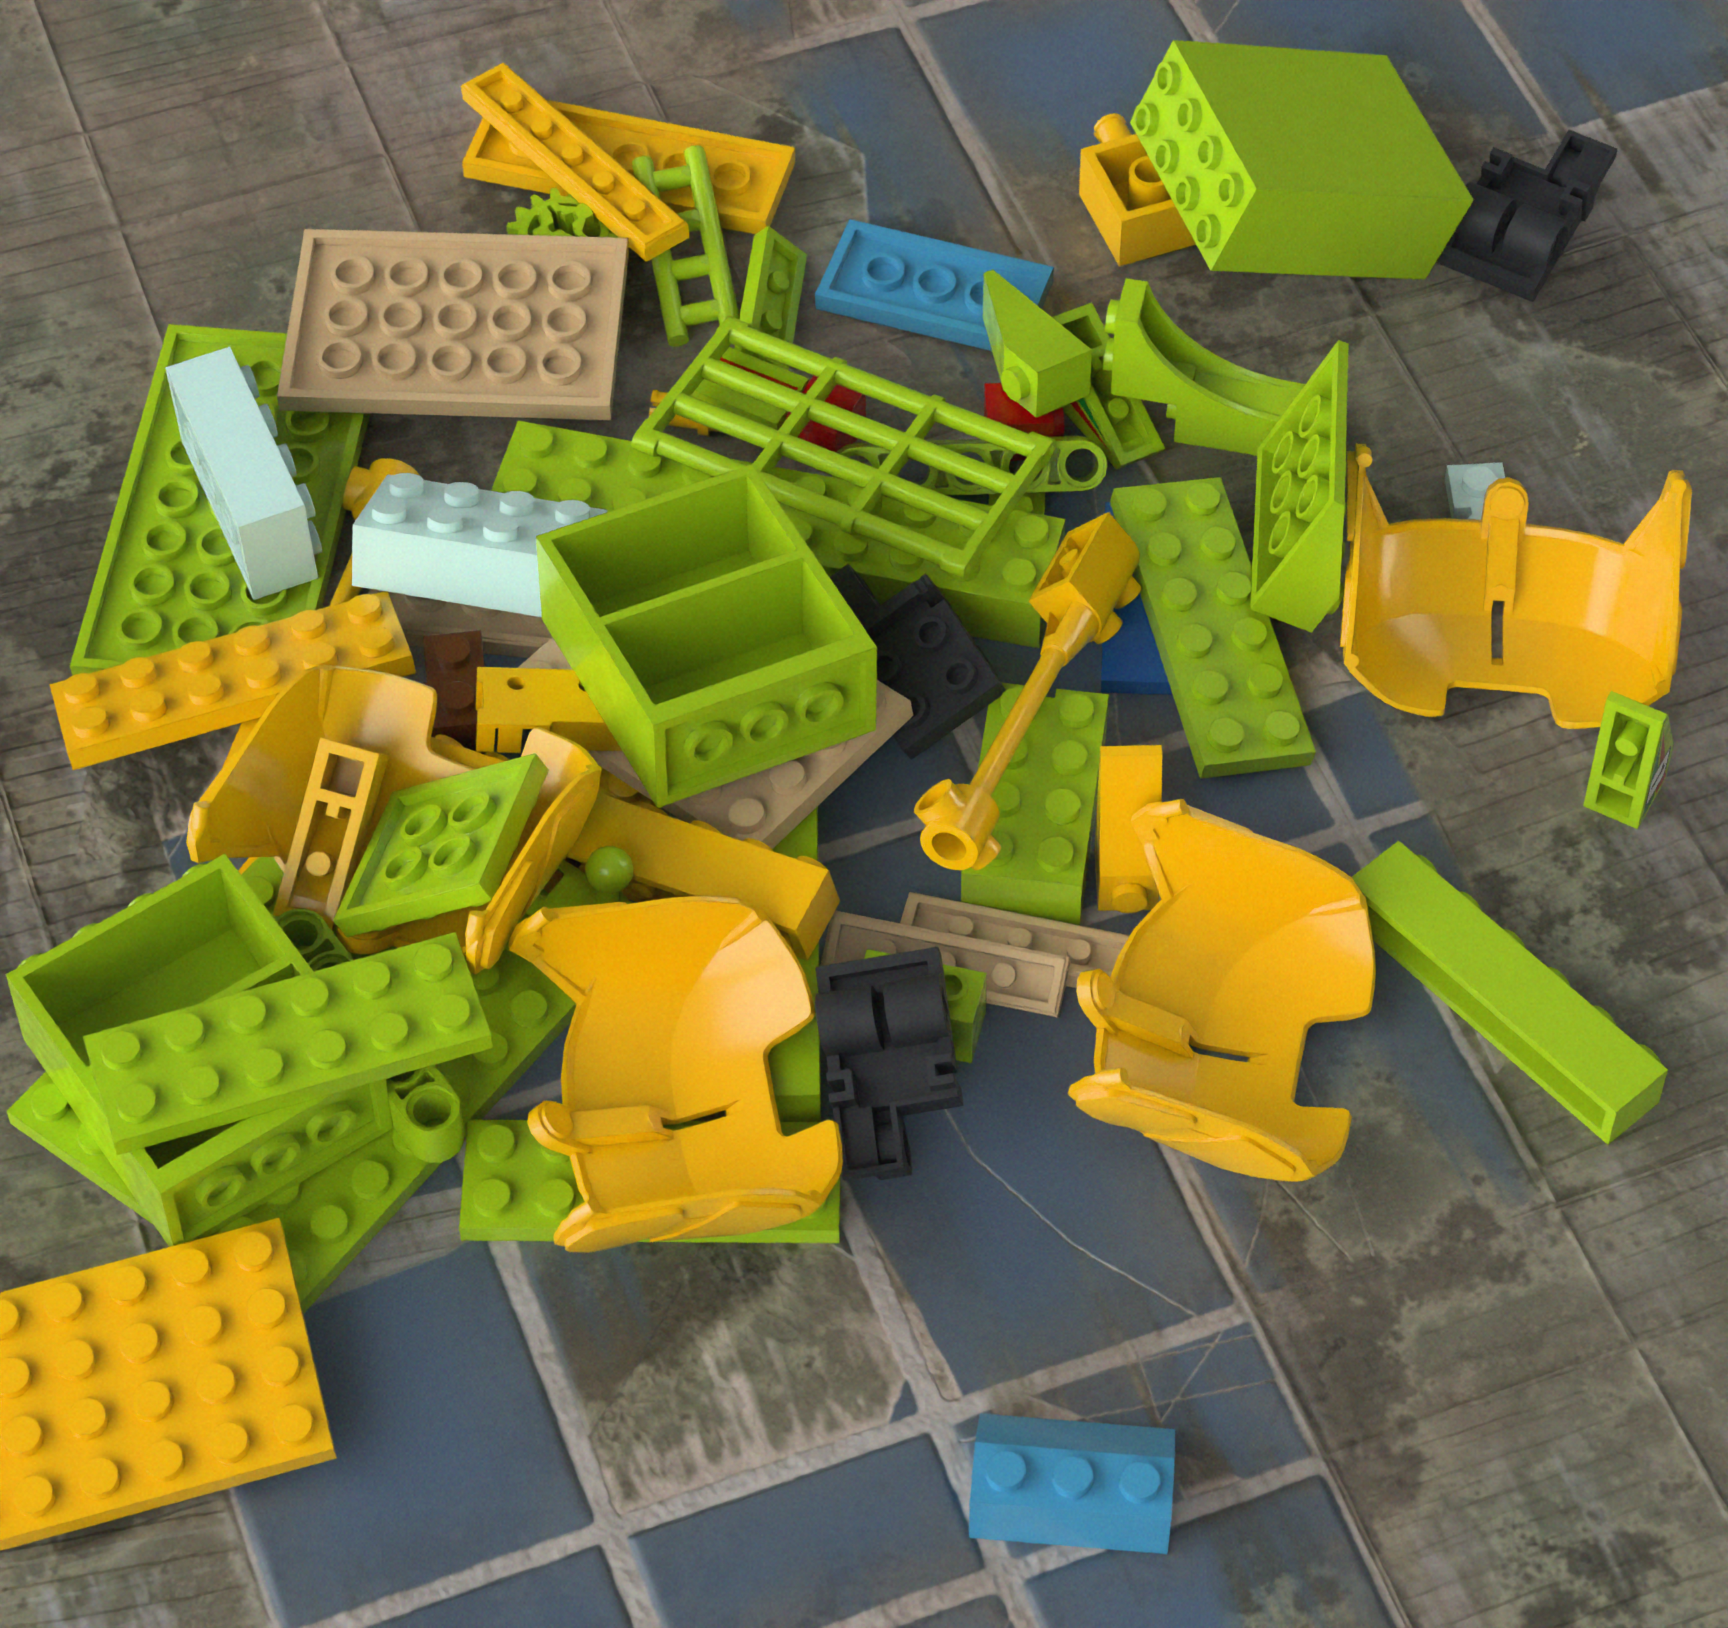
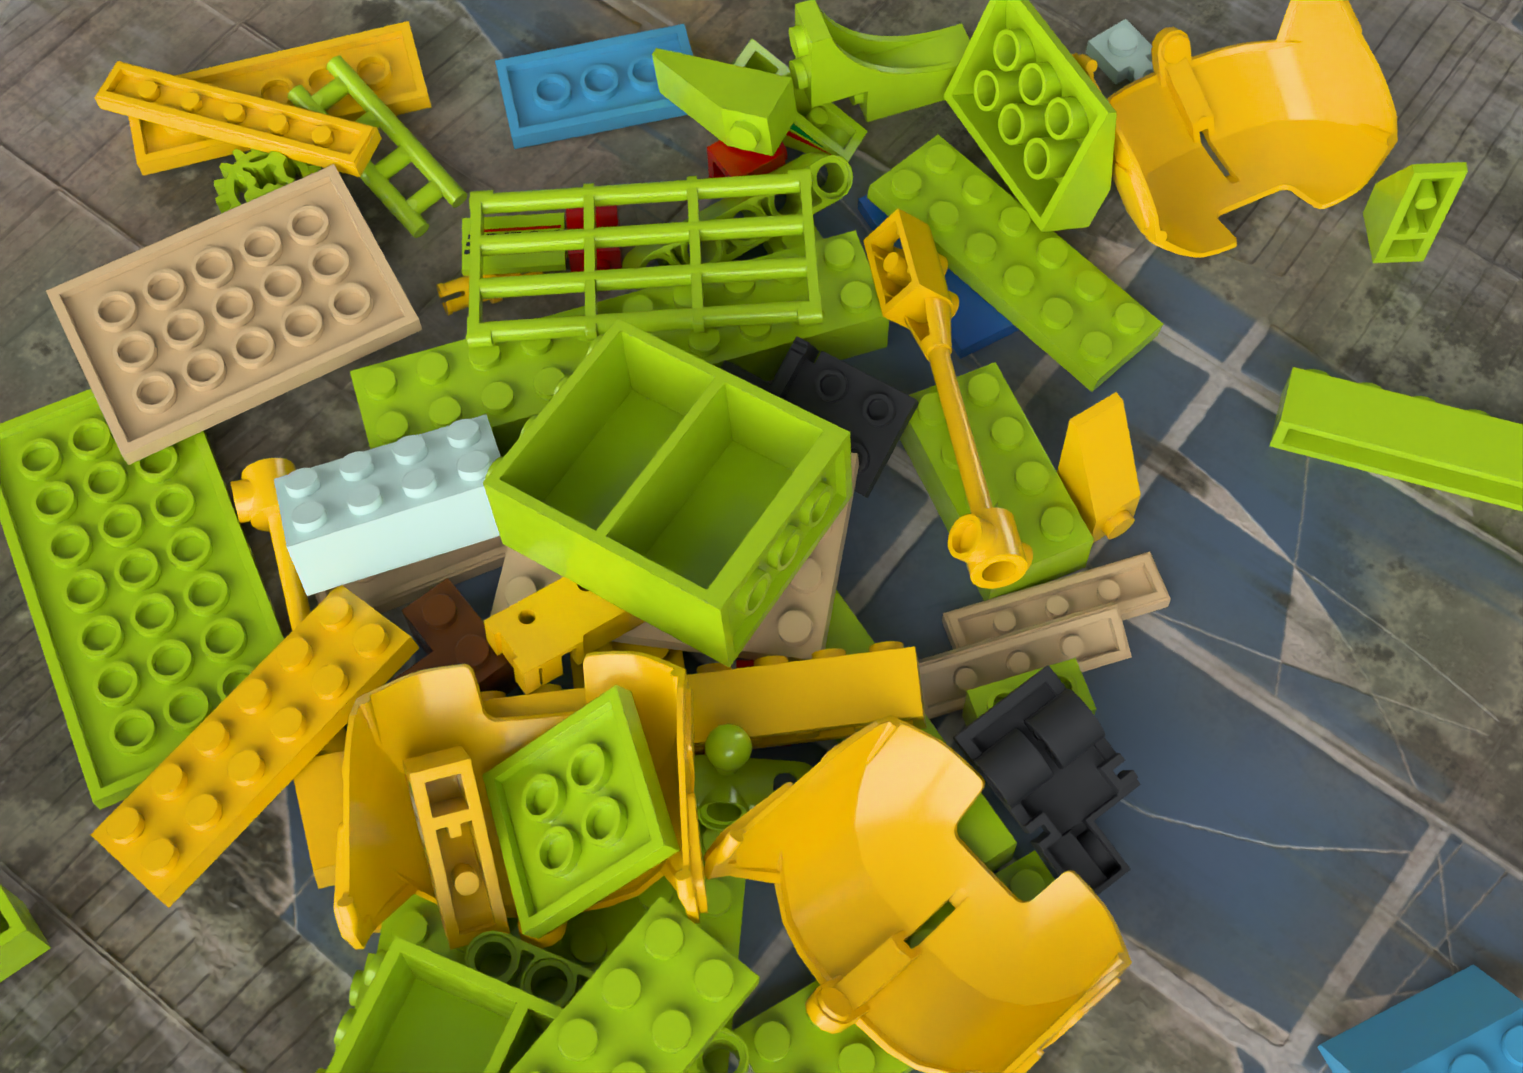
camera: 30 degrees left, 10 degrees up
(245, 472) = (144, 542): light aqua brick -> none
(773, 288) = (472, 149): lime plate -> none
(1239, 964) = (1244, 538): yellow piece -> none

